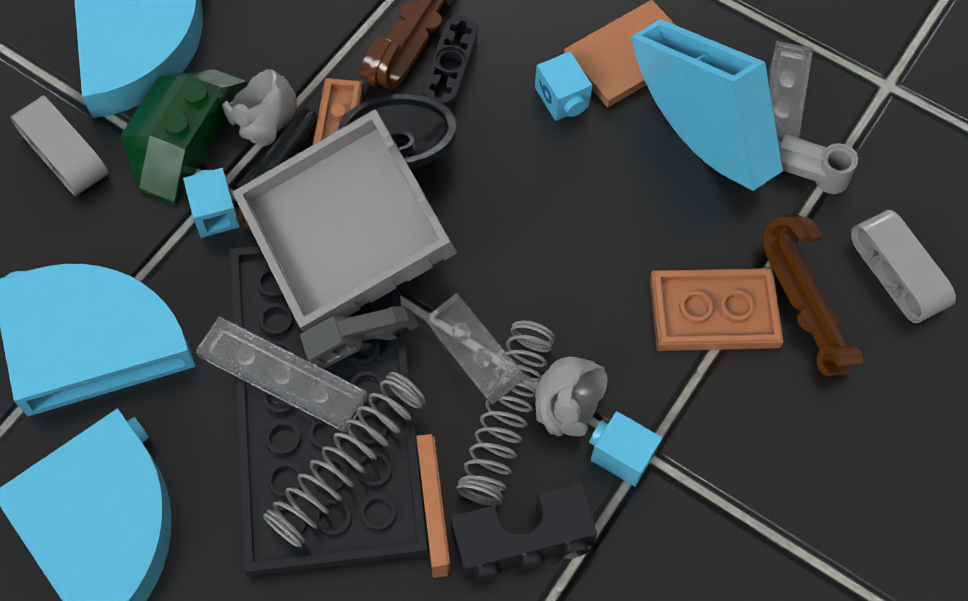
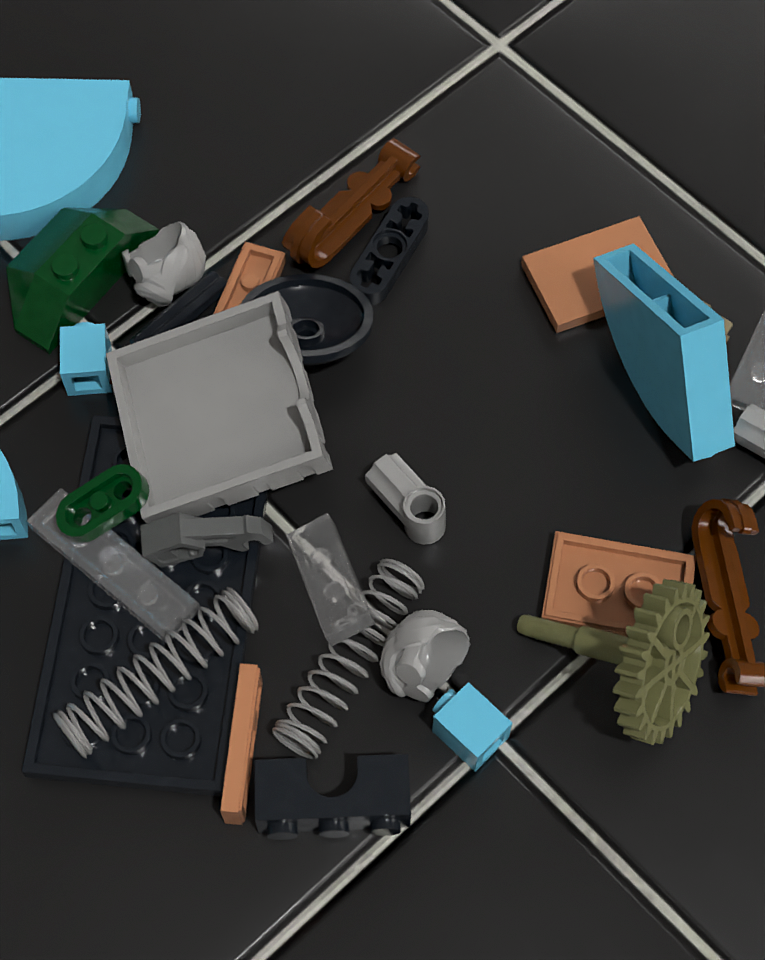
camera: 15 degrees right, 0 degrees up
(261, 318) = (104, 501): none -> dark green plate
(520, 265) = (408, 496): none -> light grey piece
(563, 86) = (509, 299): medium azure brick -> none
(771, 360) = (654, 662): none -> olive gear

